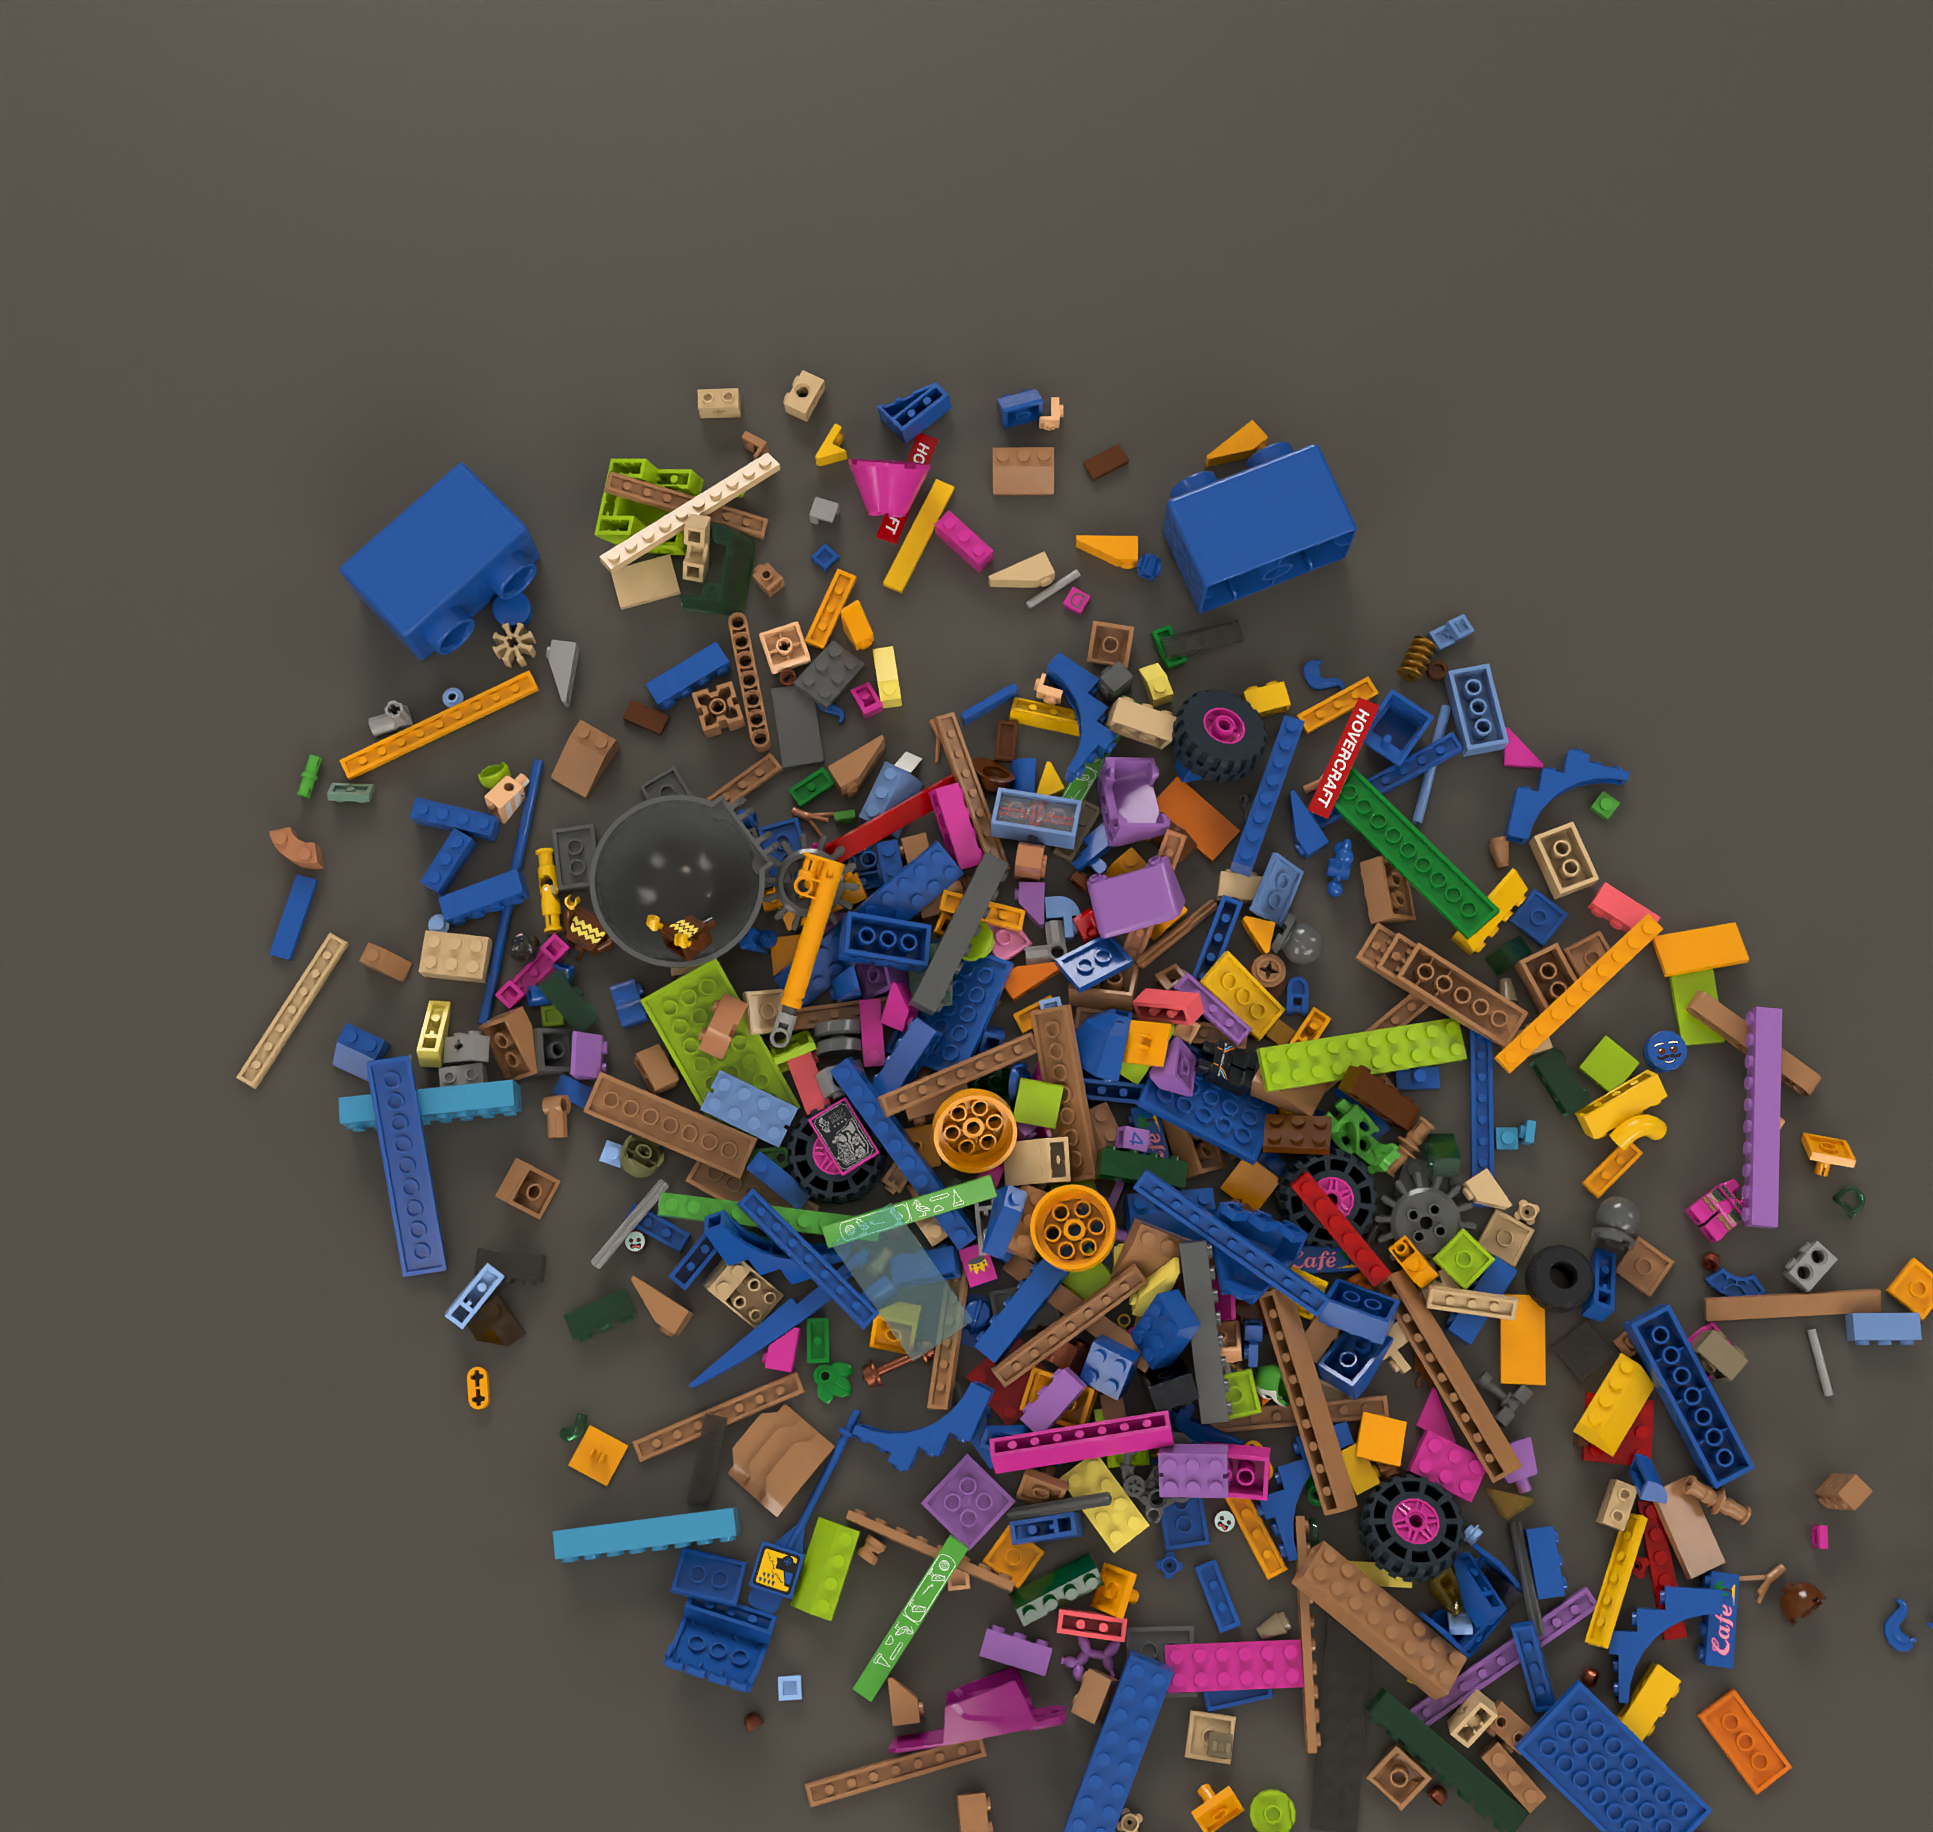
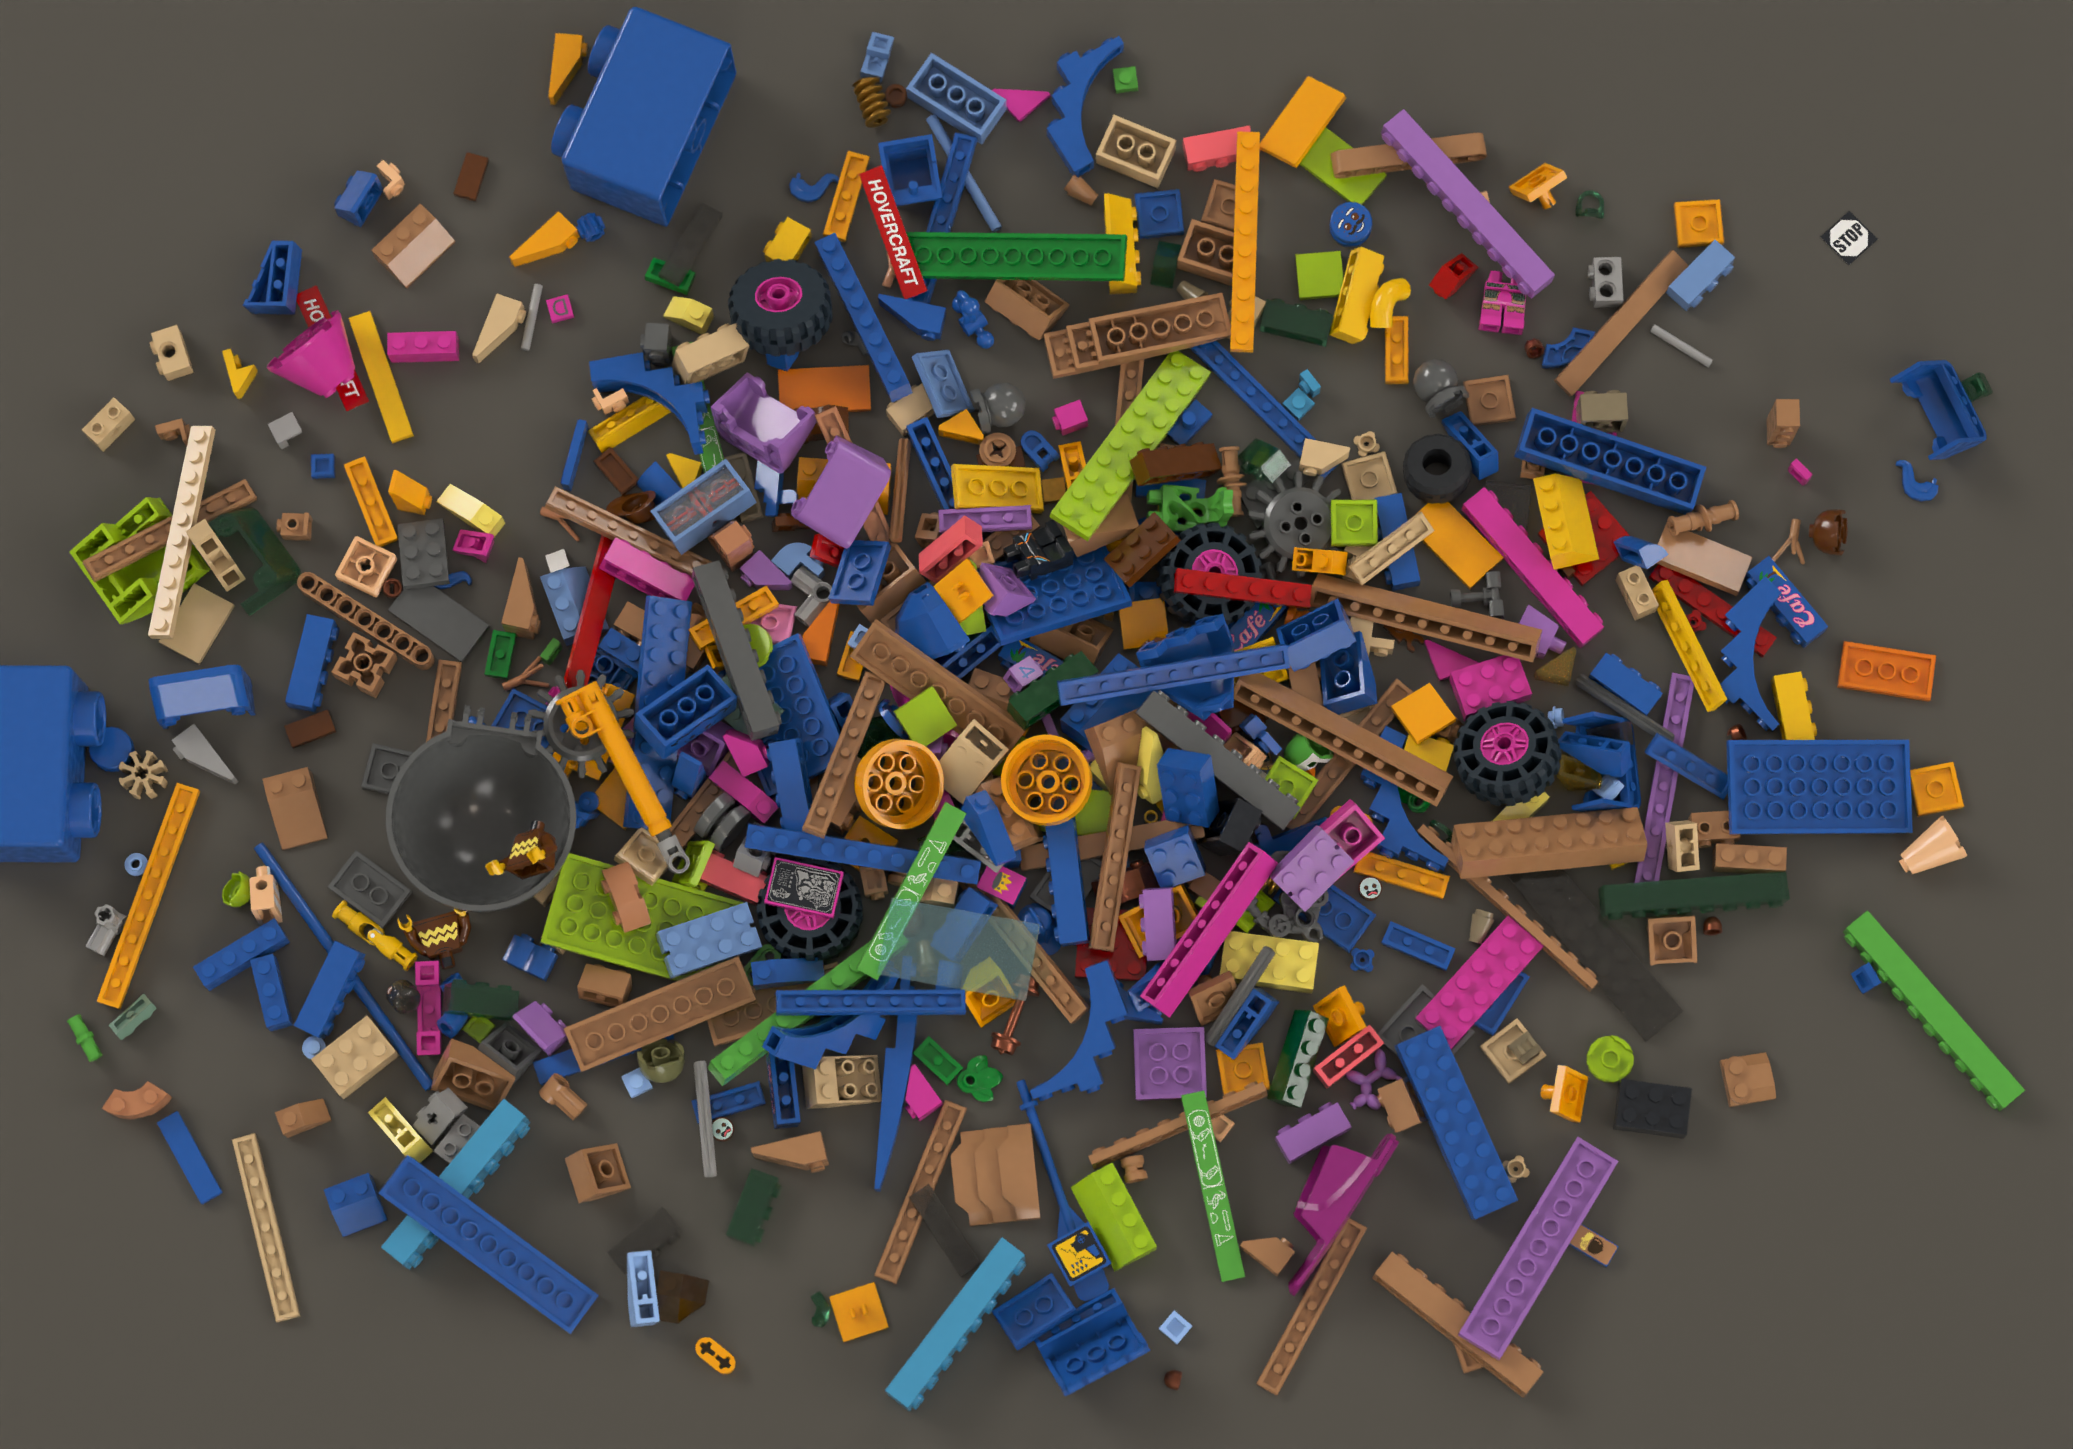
camera: 45 degrees left, 0 degrees up
(599, 628) = (201, 692): none -> windscreen
(1110, 643) = (622, 316): medium nougat slope -> none
(1339, 996) = (1070, 418): none -> dark pink brick
(1559, 1414) = (1532, 567): none -> dark pink brick
(1702, 1156) = (1452, 276): none -> red slope

